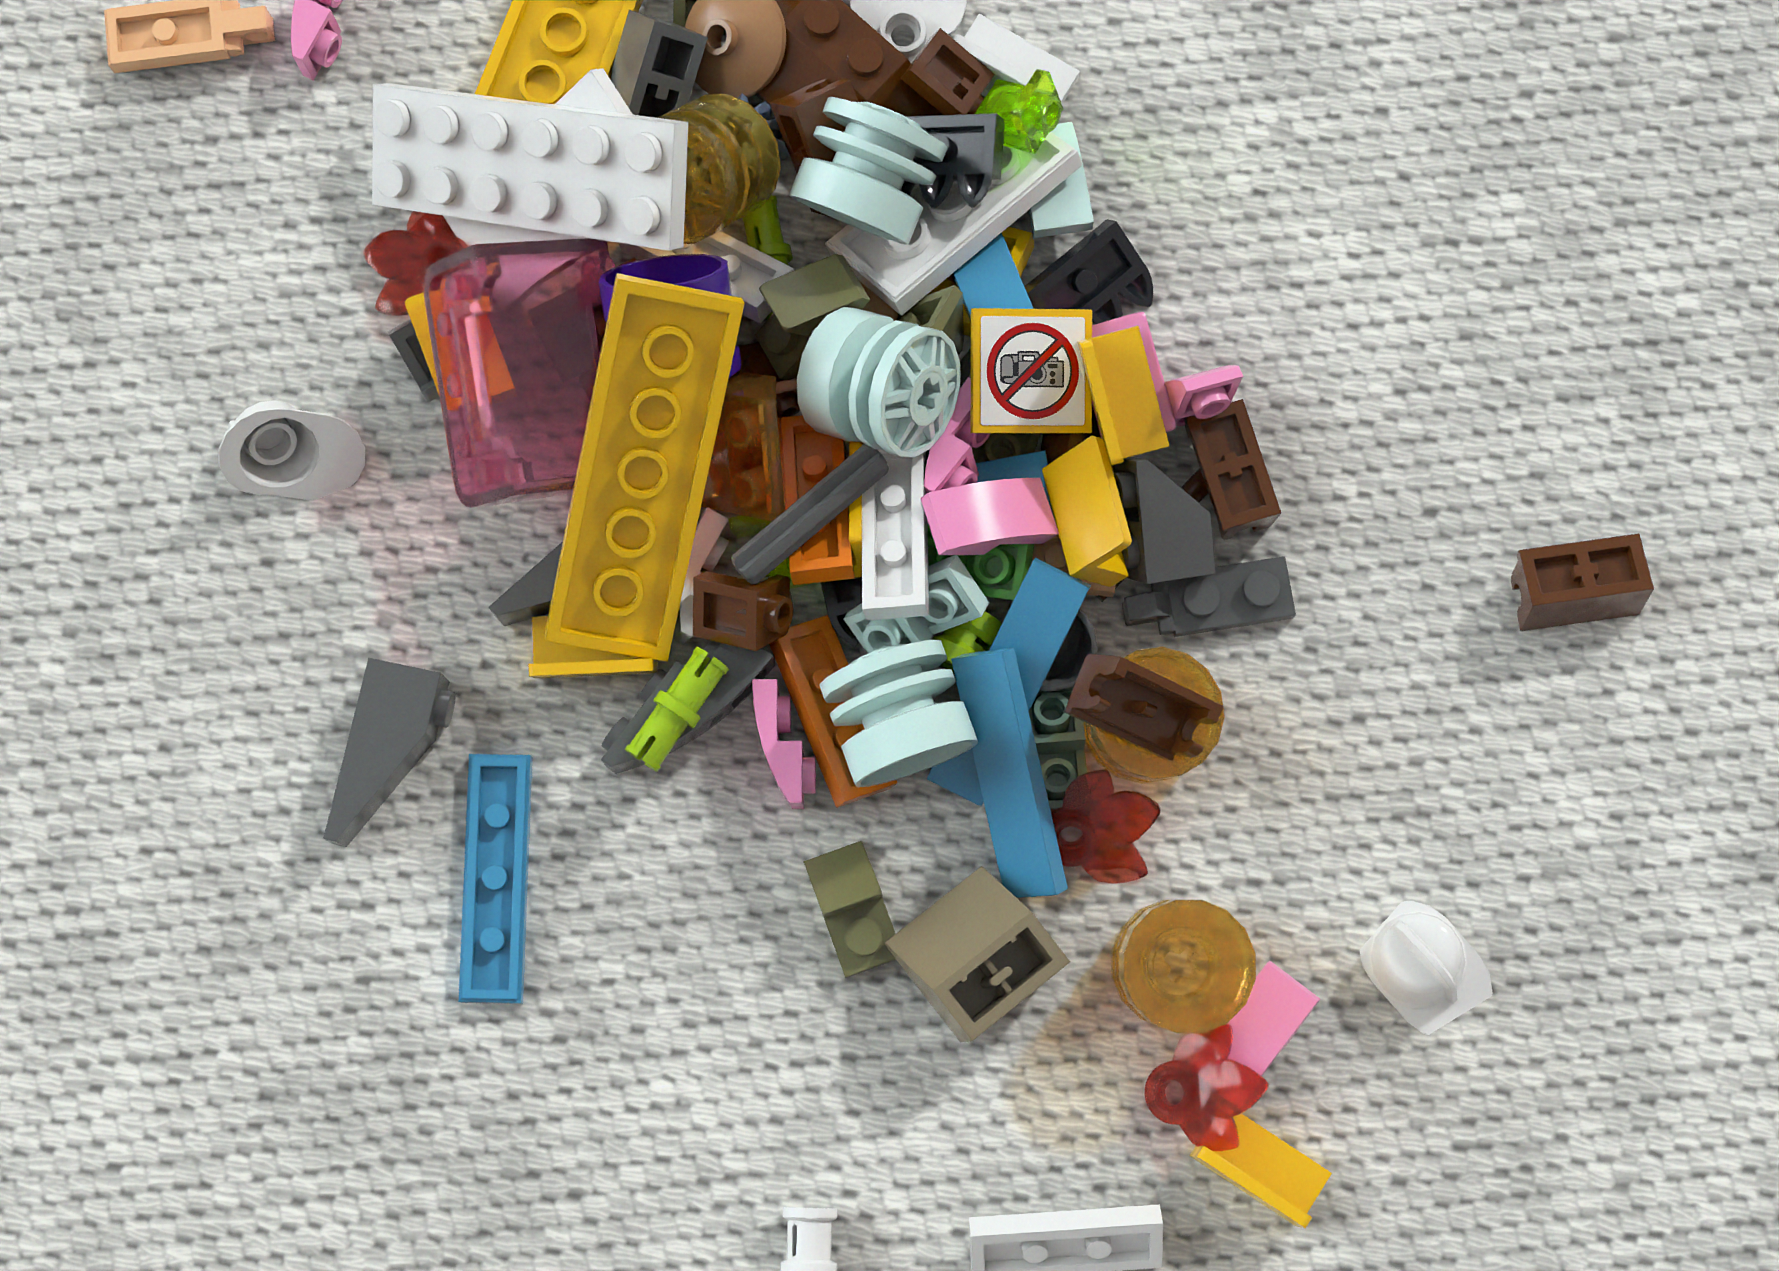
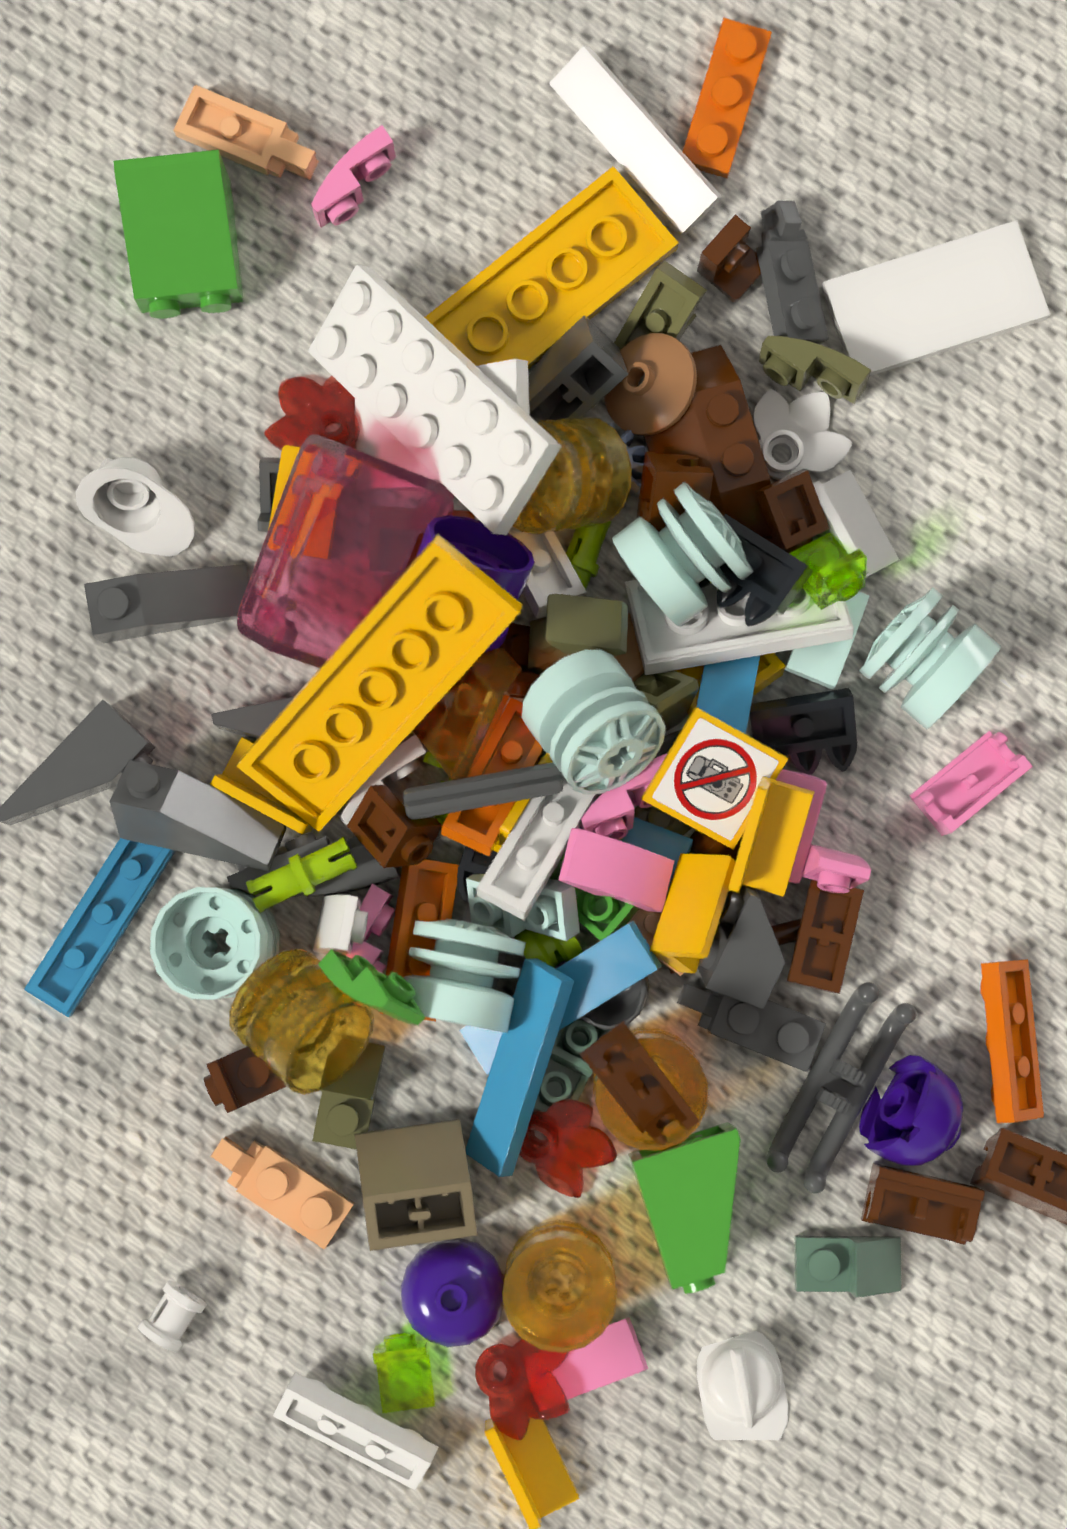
camera: 30 degrees right, 5 degrees up
(174, 156) = (179, 232): none -> bright green slope
(374, 528) = (164, 601): none -> dark grey slope
(528, 720) = (191, 817): none -> dark grey slope
(592, 823) = (185, 948): none -> light aqua wheel
(739, 952) = (240, 1080): none -> reddish brown bracket
(743, 738) = (340, 924): none -> white slope
(763, 853) = (300, 1022): none -> clear yellow wheel
(830, 770) = (365, 984): none -> bright green slope
(847, 1044) = (284, 1190): none -> light nougat hinge
(1079, 1044) = (453, 1292): none -> dark purple cylinder
(1079, 1155) = (404, 1373): none -> clear neon green bracket
(1168, 141) = (929, 658): none -> light aqua wheel
(1262, 806) = (691, 1203): none -> bright green slope
(1279, 242) = (969, 782): none -> bright pink hinge
(1334, 607) = (838, 1086): none -> dark grey piece
(1427, 589) = (915, 1116): none -> dark purple cylinder
(1450, 780) = (848, 1264): none -> sand green slope
(1474, 465) = (1011, 1041): none -> orange plate
(1487, 675) = (922, 1204): none -> reddish brown hinge

